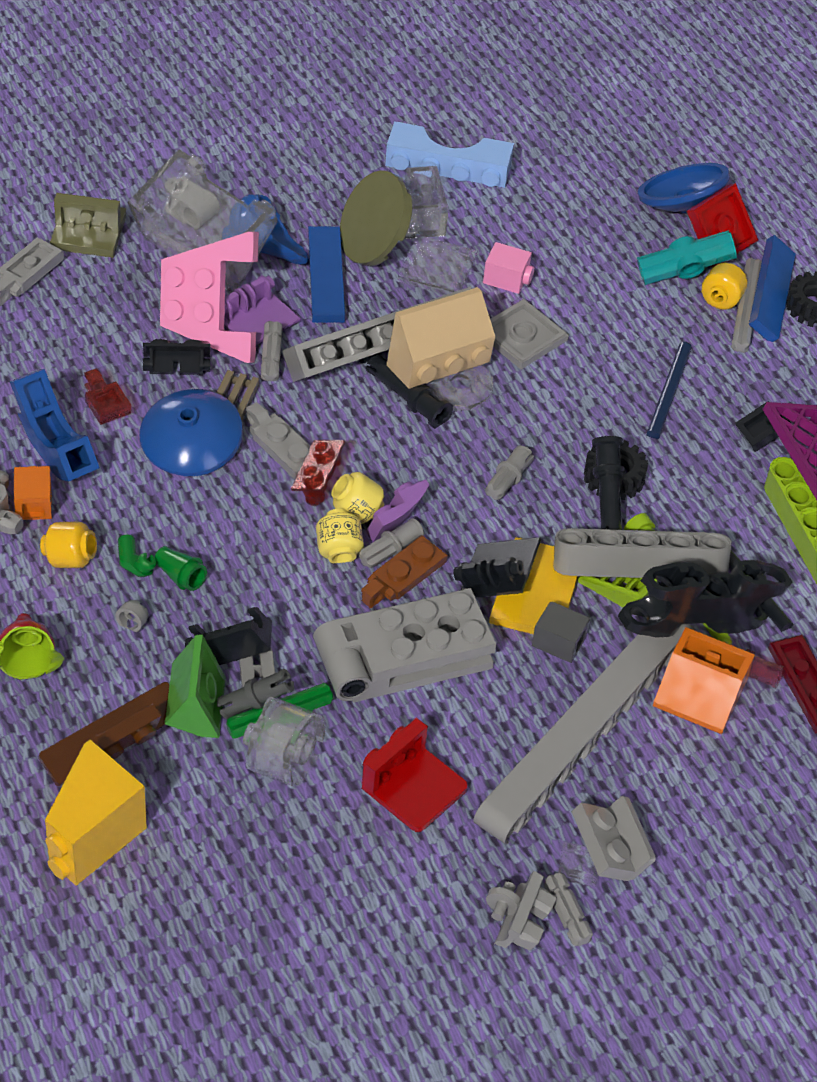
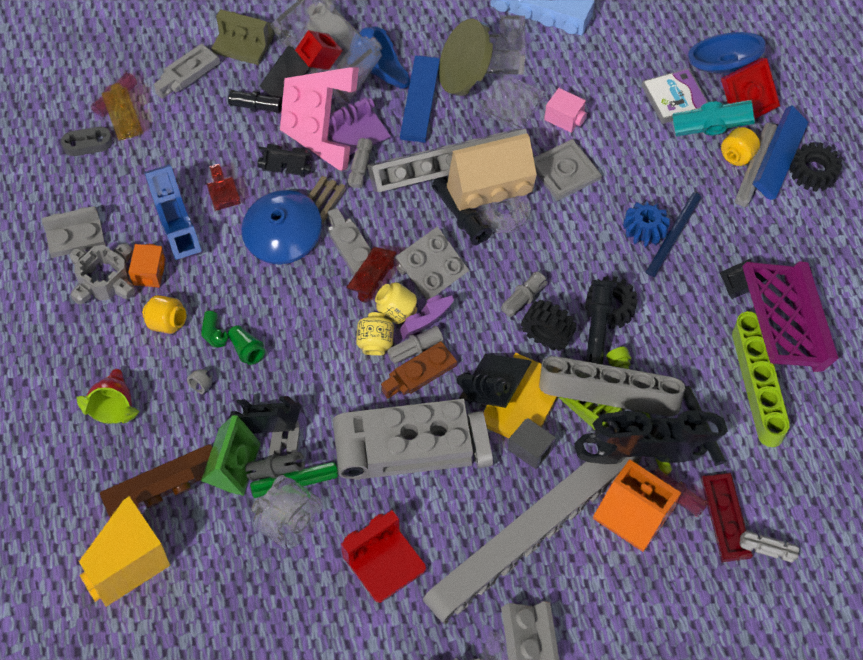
camera: 15 degrees right, 10 degrees up
(121, 296) = (255, 101): none -> black pin
(146, 267) = (287, 66): none -> black slope
(194, 224) = (318, 50): none -> red brick
(387, 451) = (431, 263): none -> light grey hinge
(506, 650) = (480, 439): none -> light grey beam
(555, 487) = (548, 325): none -> black tyre
(630, 238) = (673, 94): none -> tile
(635, 380) = (646, 223): none -> blue gear

